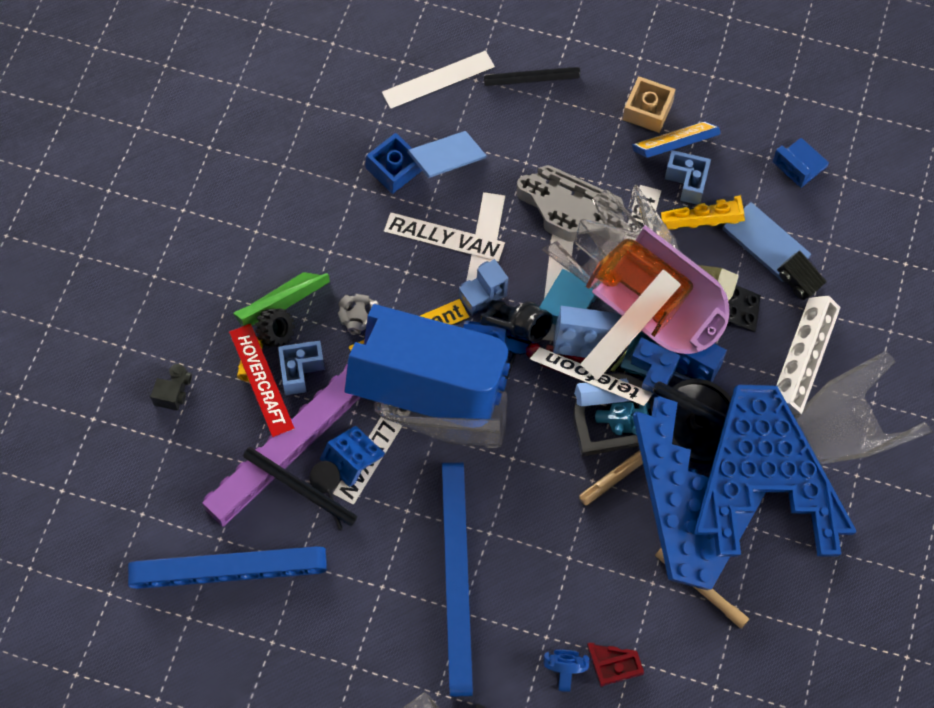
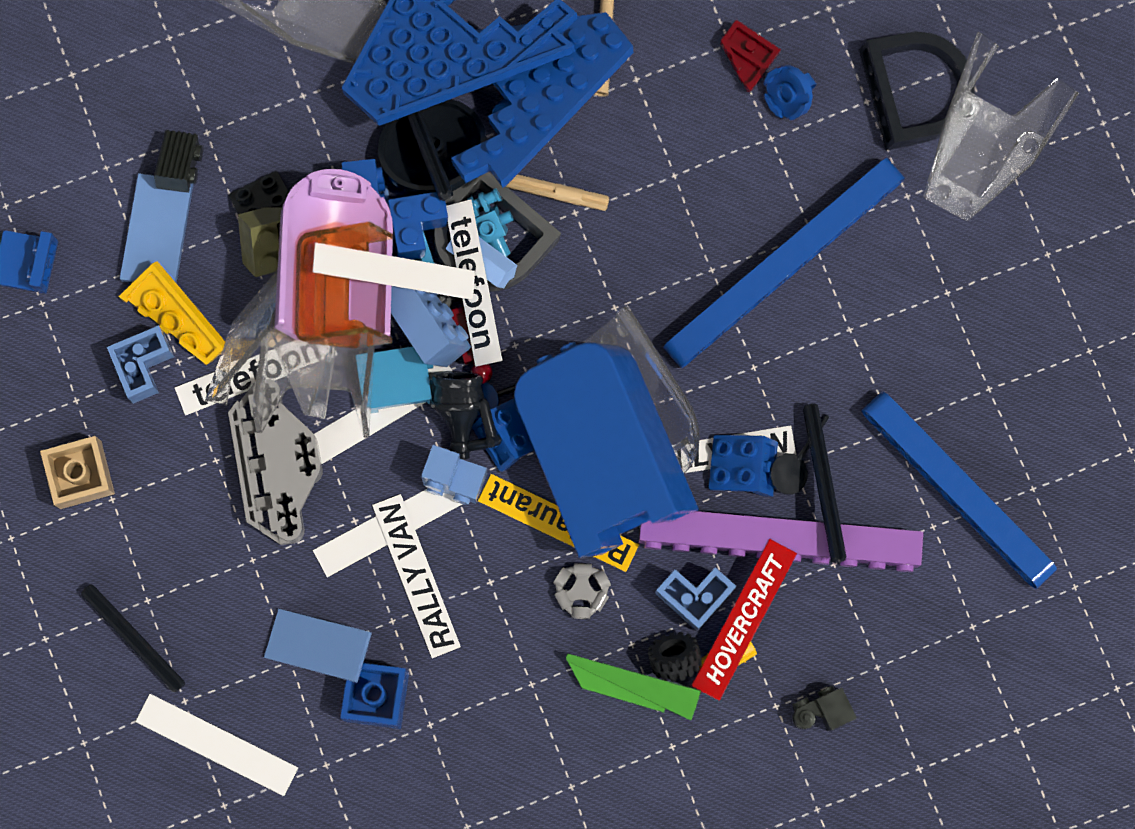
camera: 130 degrees left, 15 degrees up
(676, 139) = (102, 409): tile -> none
(807, 351) = (261, 88): white brick -> none

